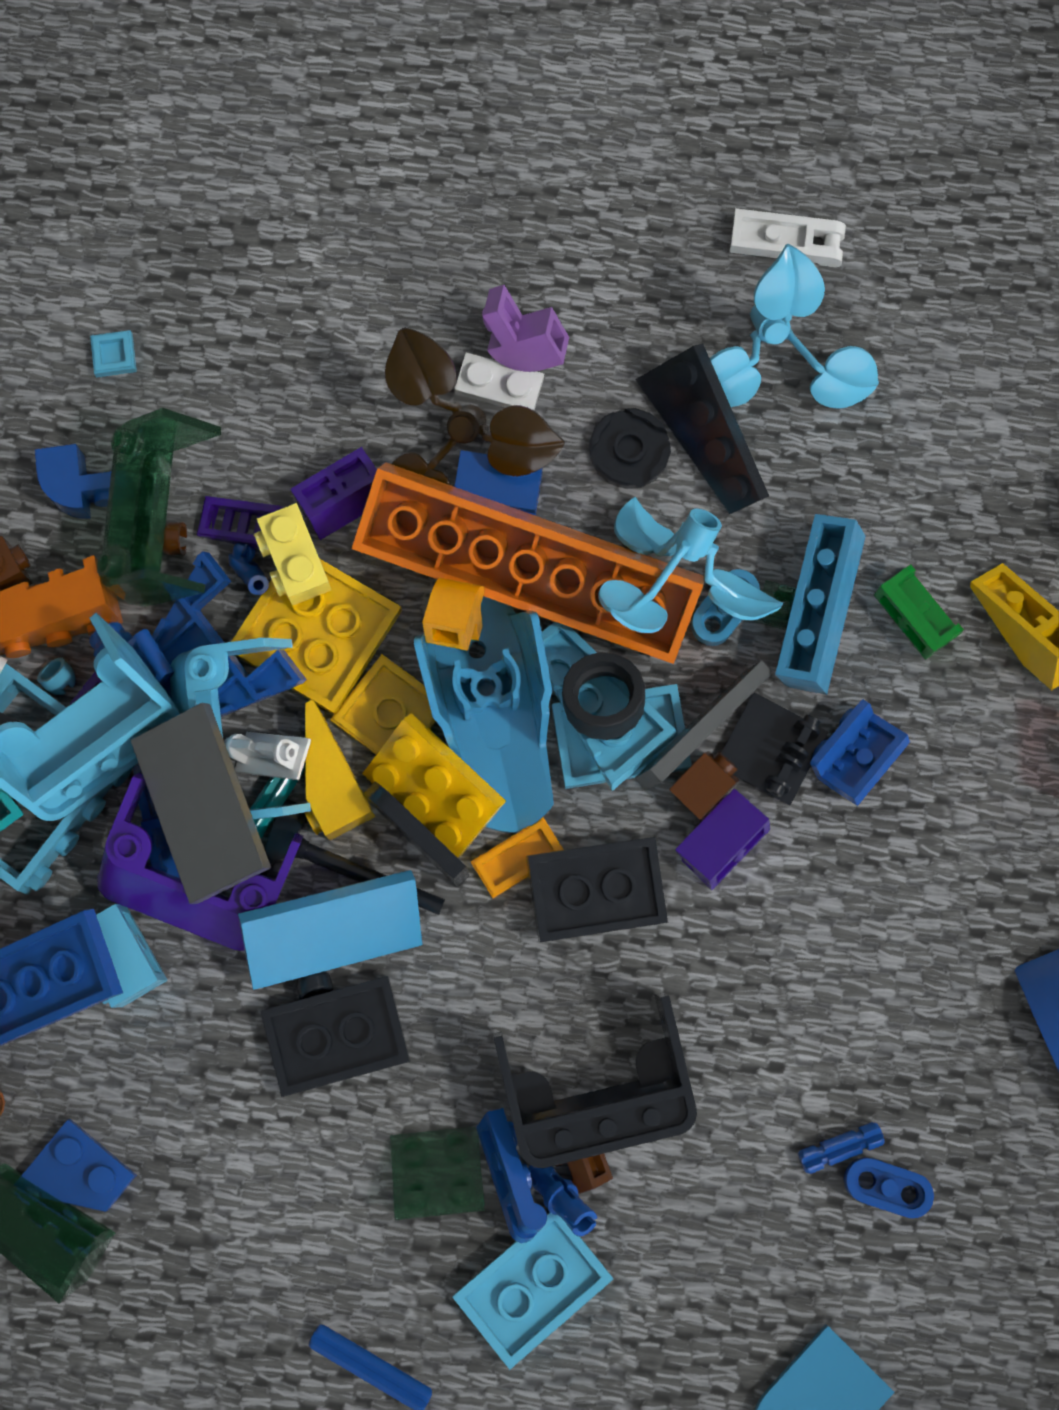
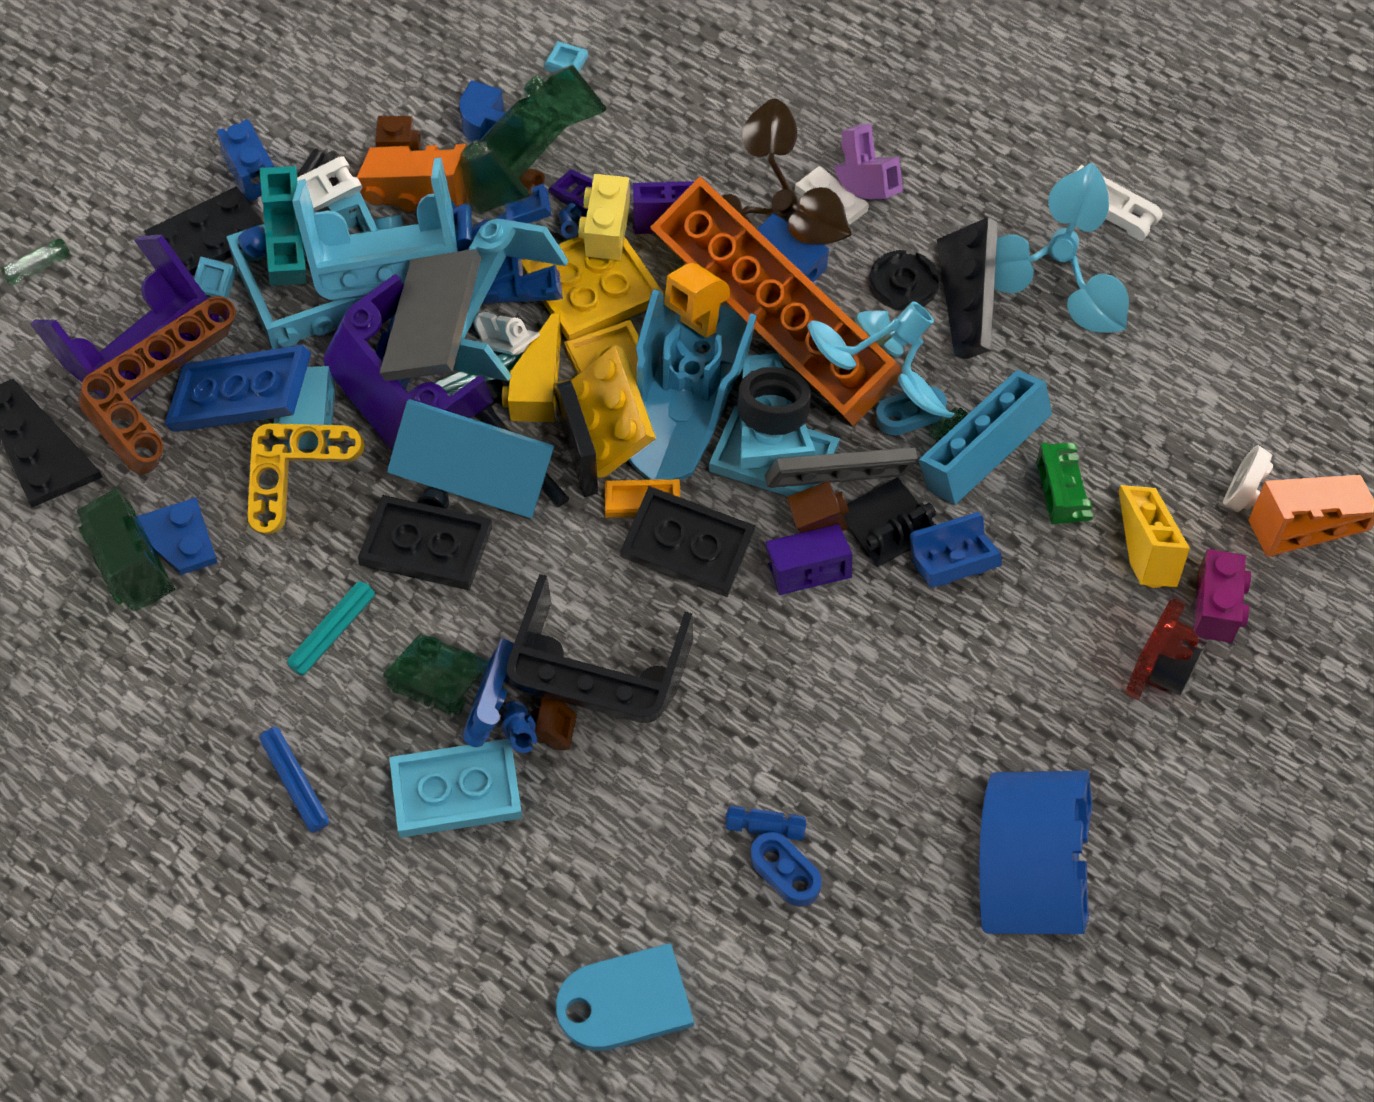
camera: 30 degrees right, 20 degrees down
(134, 1041) = (279, 459): none -> yellow beam
(301, 1185) = (330, 628): none -> teal axle

